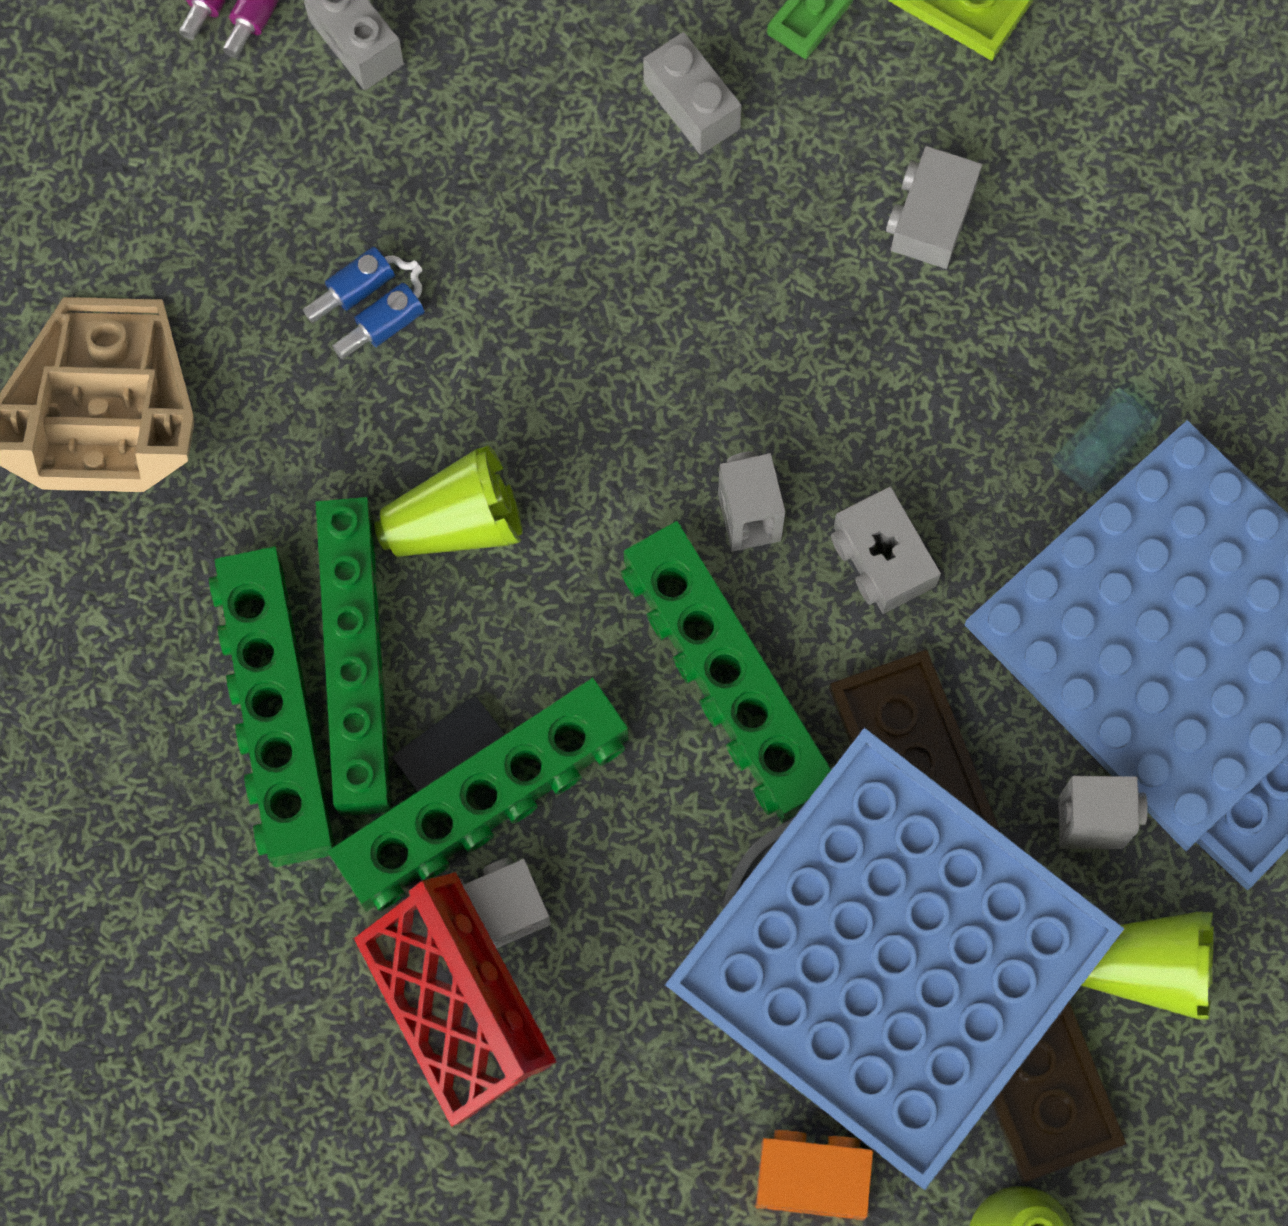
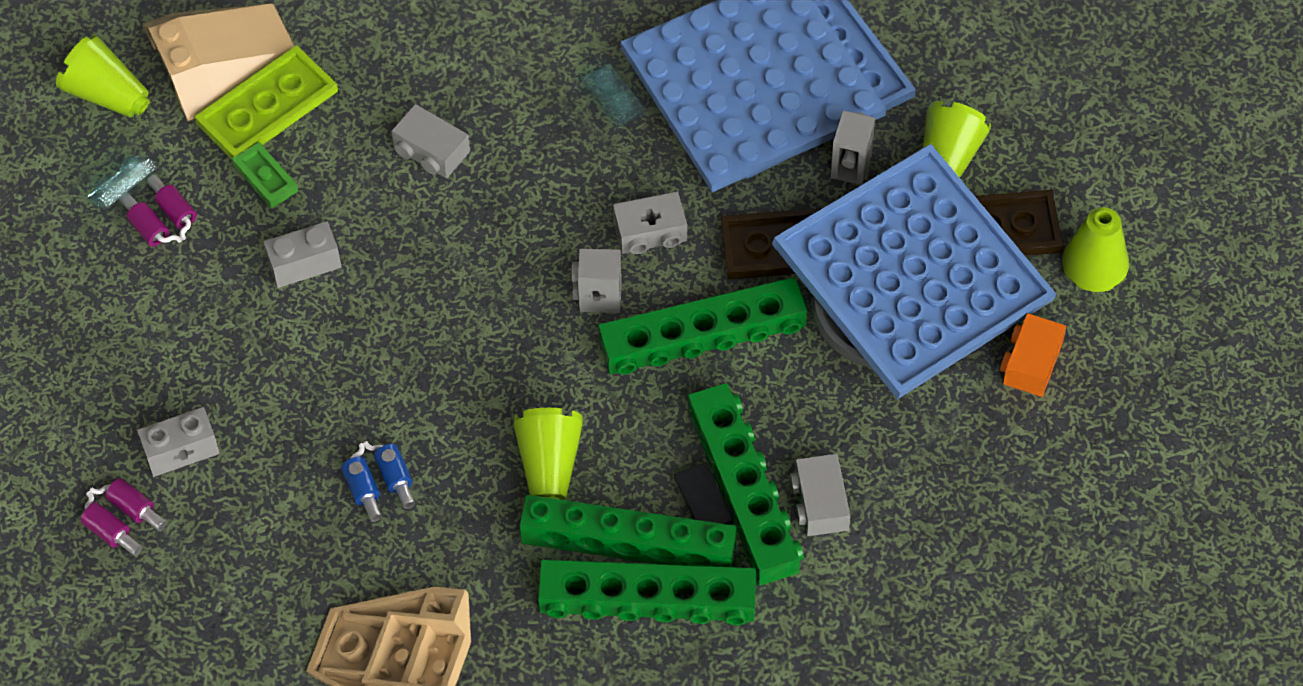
camera: 75 degrees left, 15 degrees down
(478, 980) = (868, 493): red fence -> none

